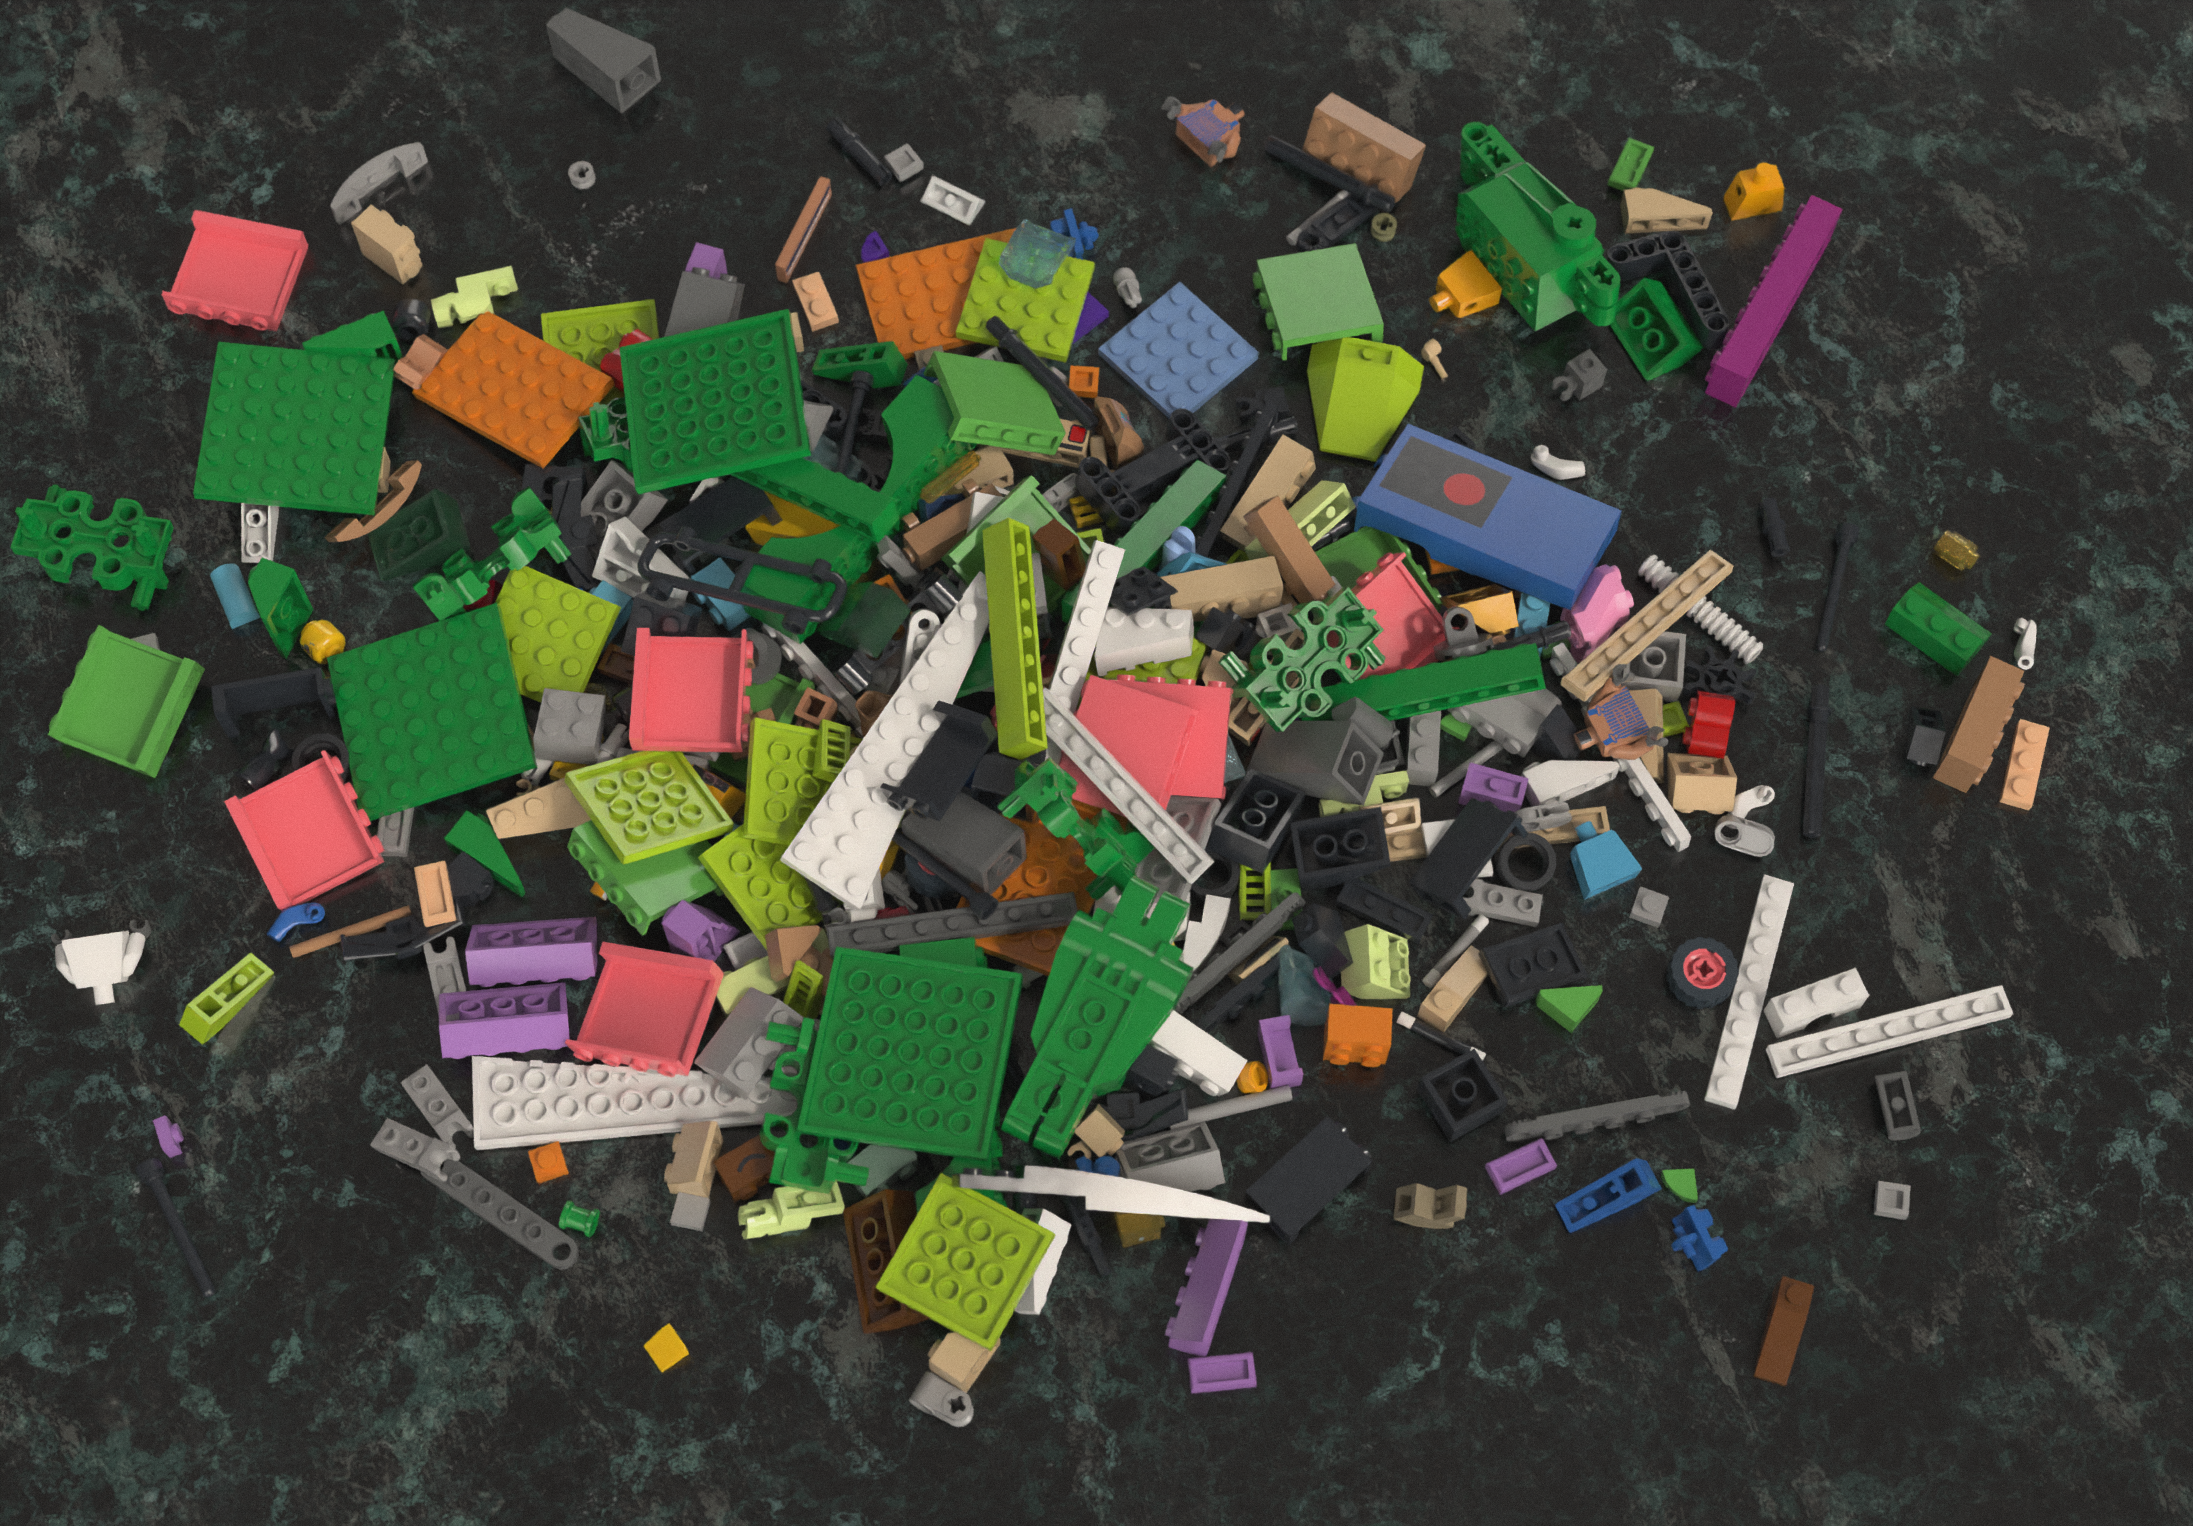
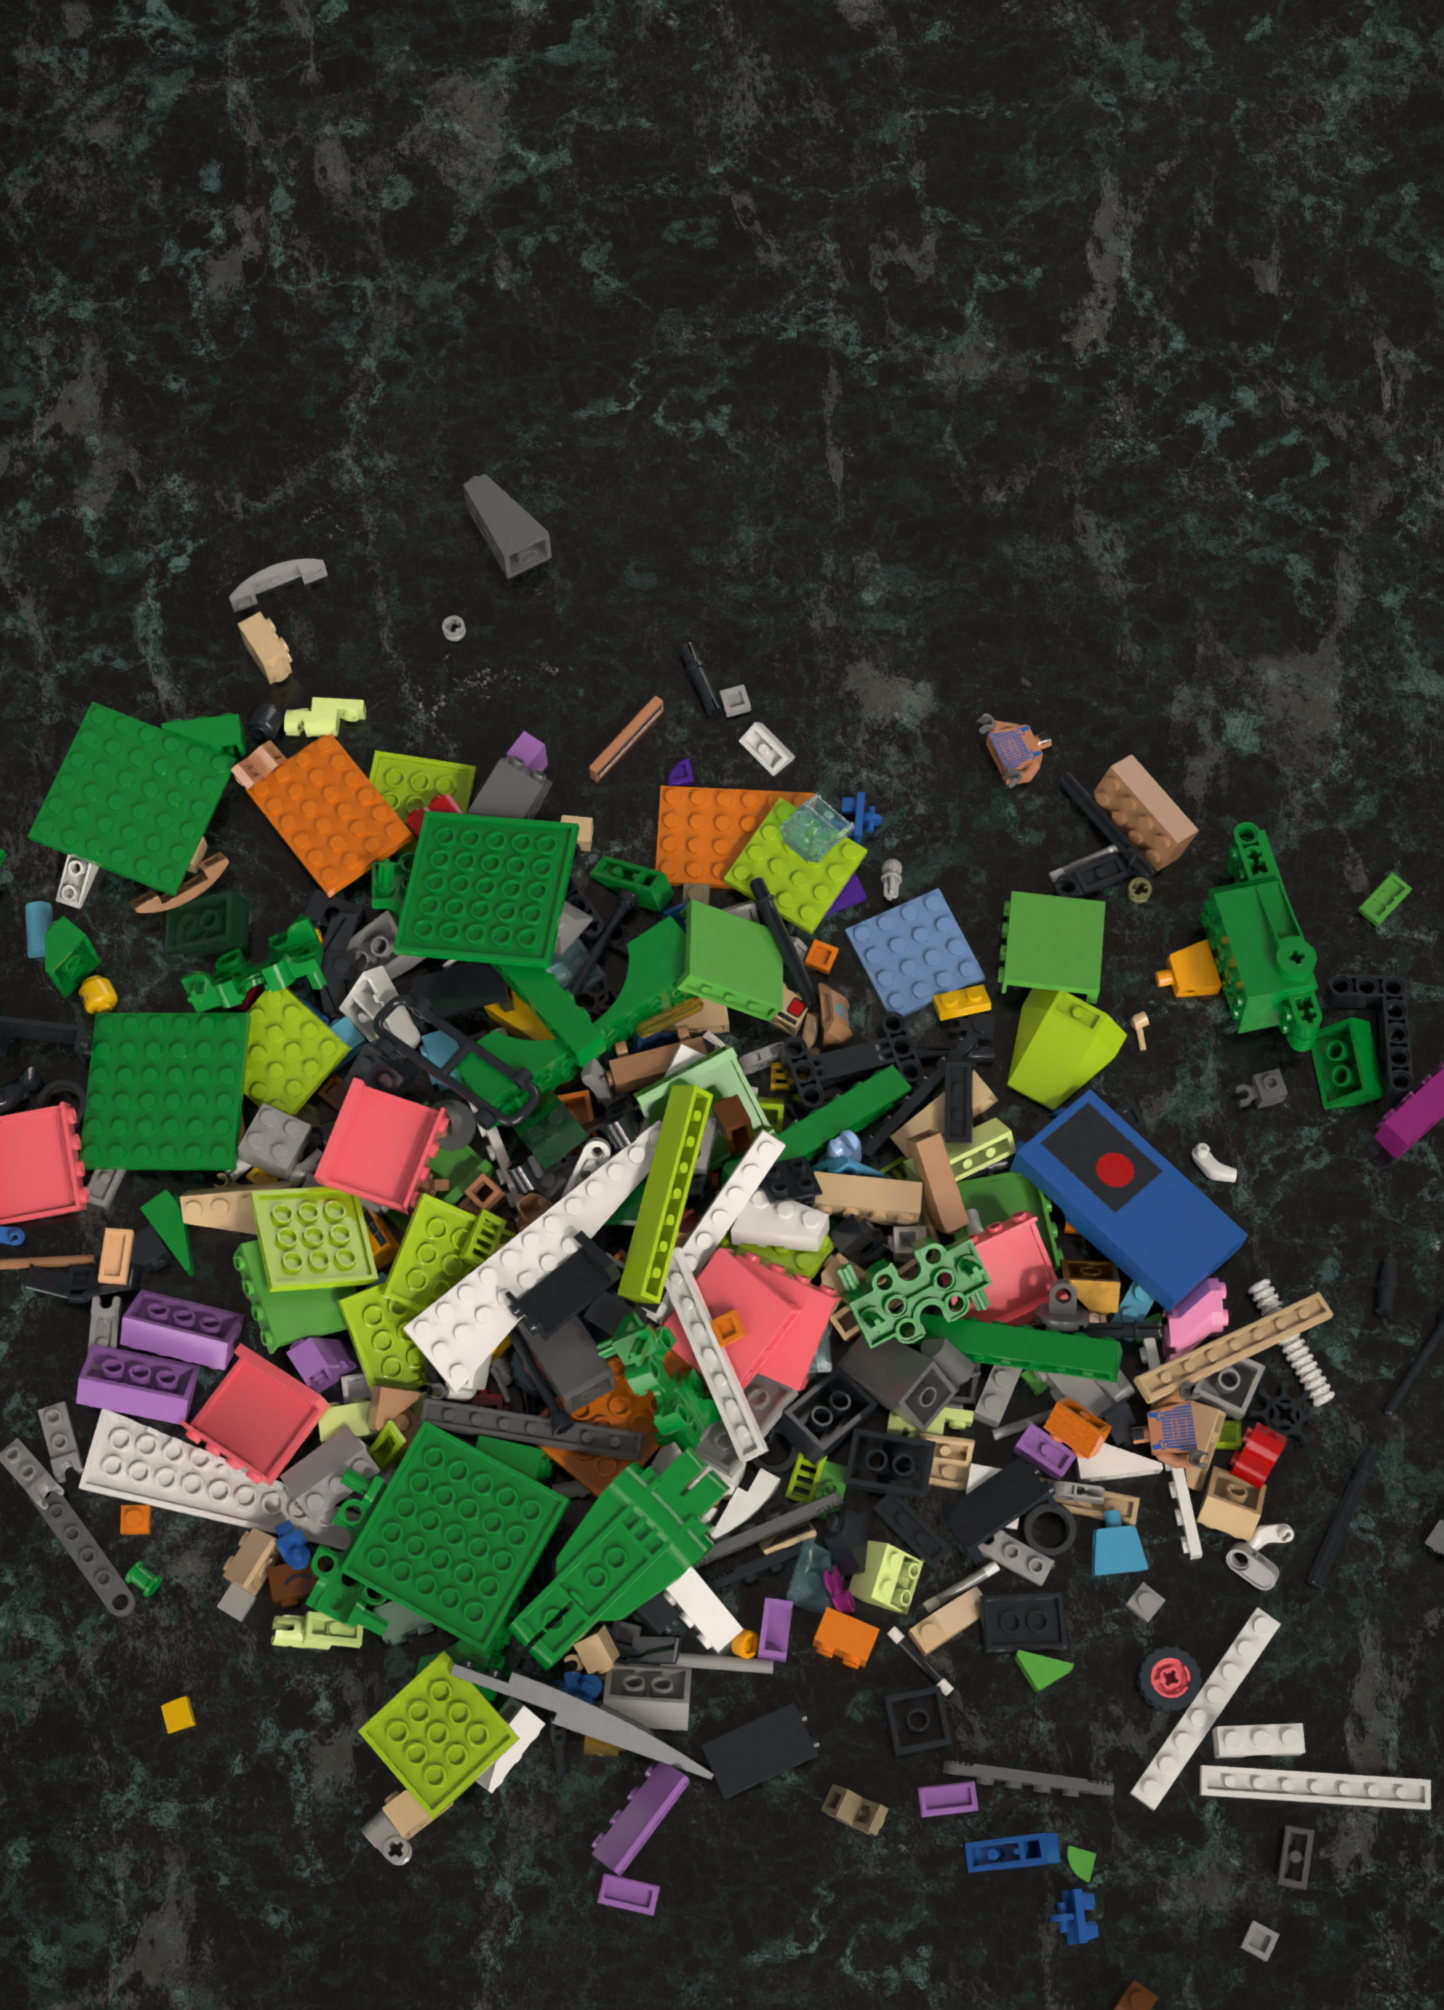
camera: 20 degrees right, 5 degrees up
(237, 271) = (134, 633): coral panel -> none
(734, 1125) = (293, 1546): none -> blue hips
(815, 301) = (615, 808): light nougat plate -> none
(874, 1234) = (380, 1677): reddish brown slope -> none
(1129, 751) = (728, 1328): none -> orange plate
(1244, 383) = (961, 1002): none -> yellow plate
(1281, 468) = (958, 1103): none -> black plate
(1519, 750) = (1077, 1428): none -> orange brick
(1657, 211) = (1391, 951): tan slope -> none

